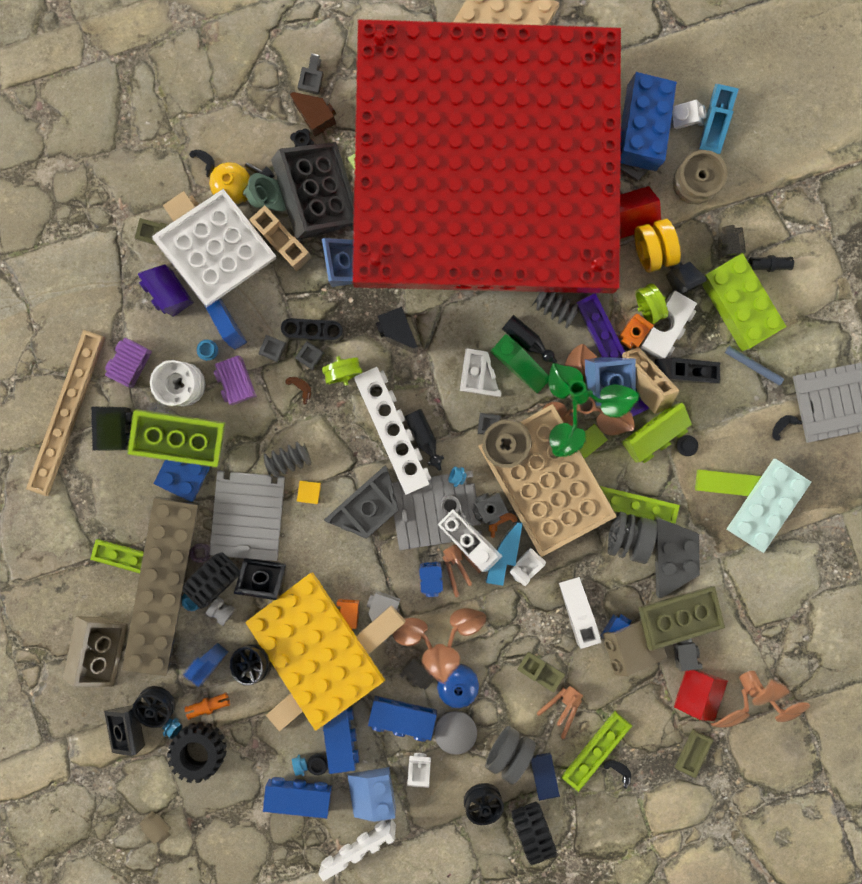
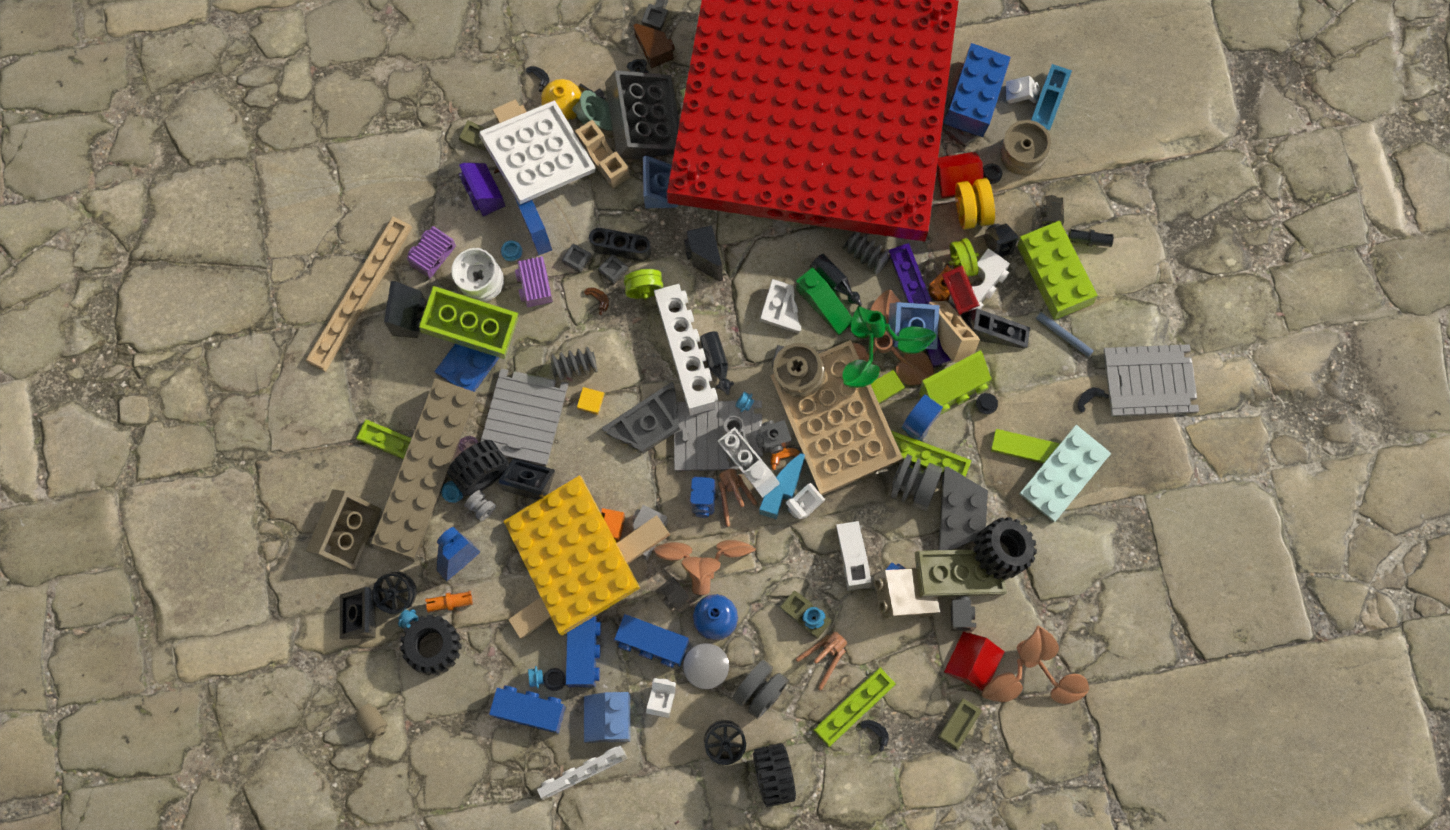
camera: 10 degrees right, 15 degrees down
(250, 664) = (492, 557): black wheel -> none
(544, 776) = (795, 726): dark blue tile -> none
(554, 682) = (813, 612): none -> dark azure plate
(630, 474) = (921, 418): none -> blue brick
(654, 339) = (960, 290): none -> red tile
(668, 207) = (992, 173): none -> black plate
(735, 586) = (1015, 538): none -> black tyre

